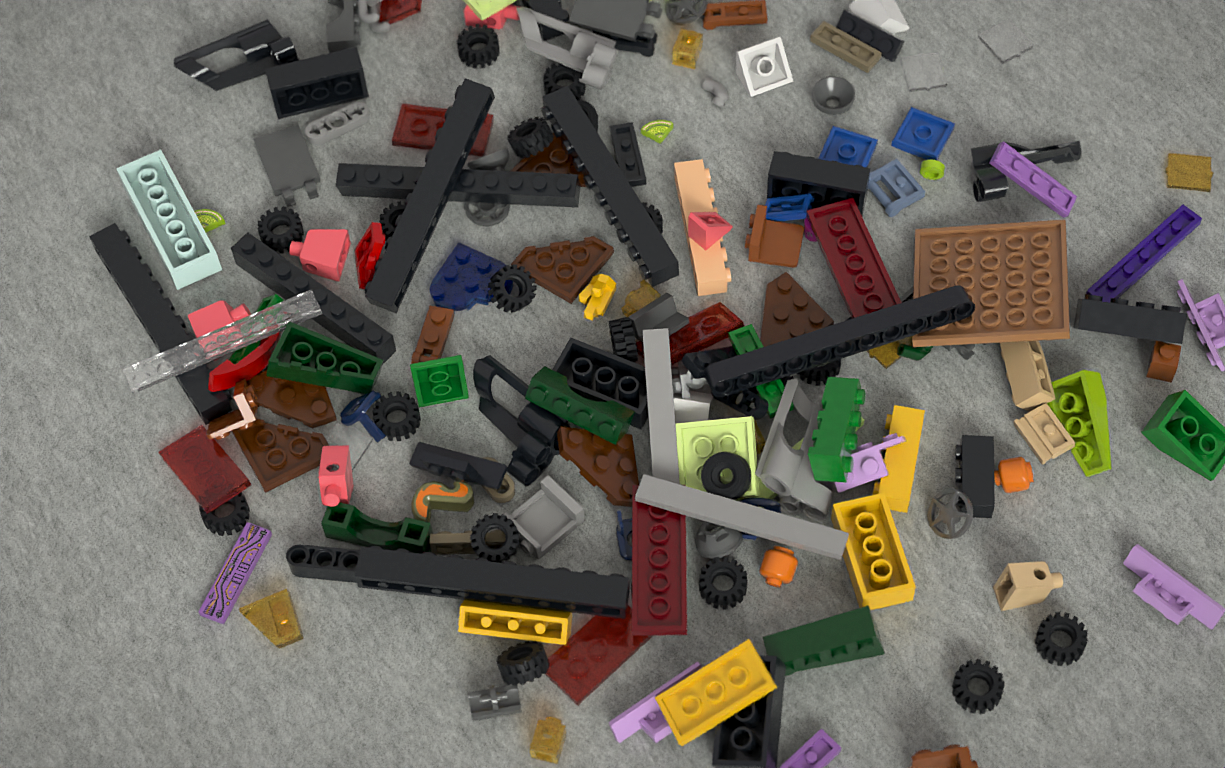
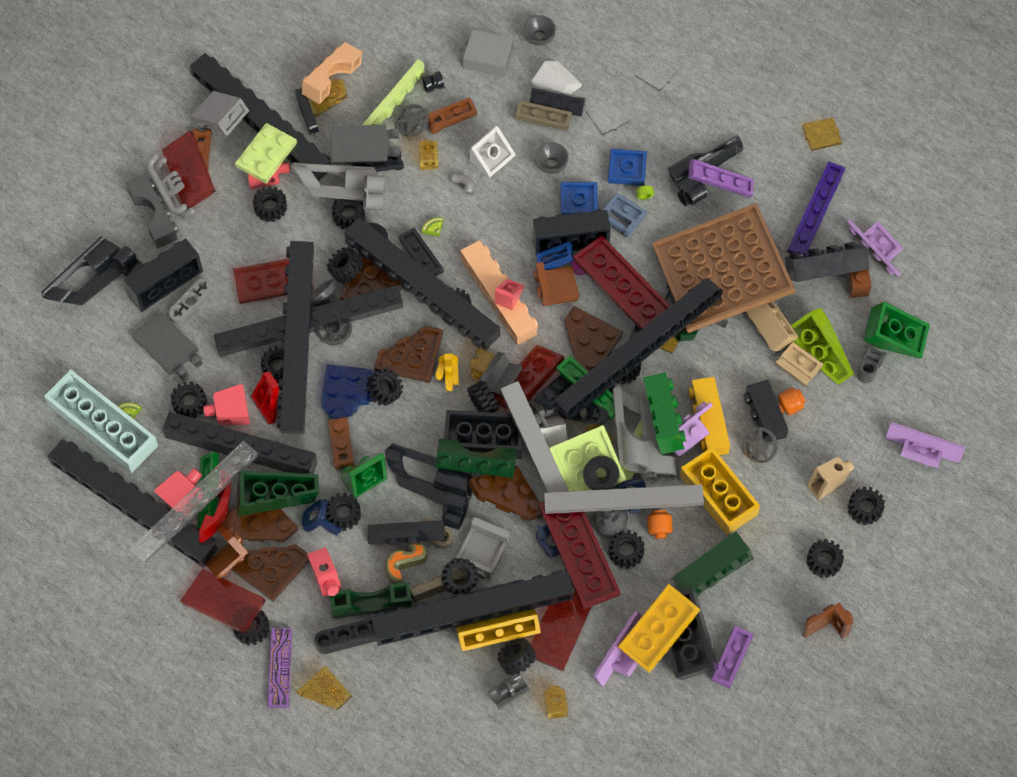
camera: 25 degrees left, 5 degrees up
(1142, 462) = (872, 362): none -> dark grey piece

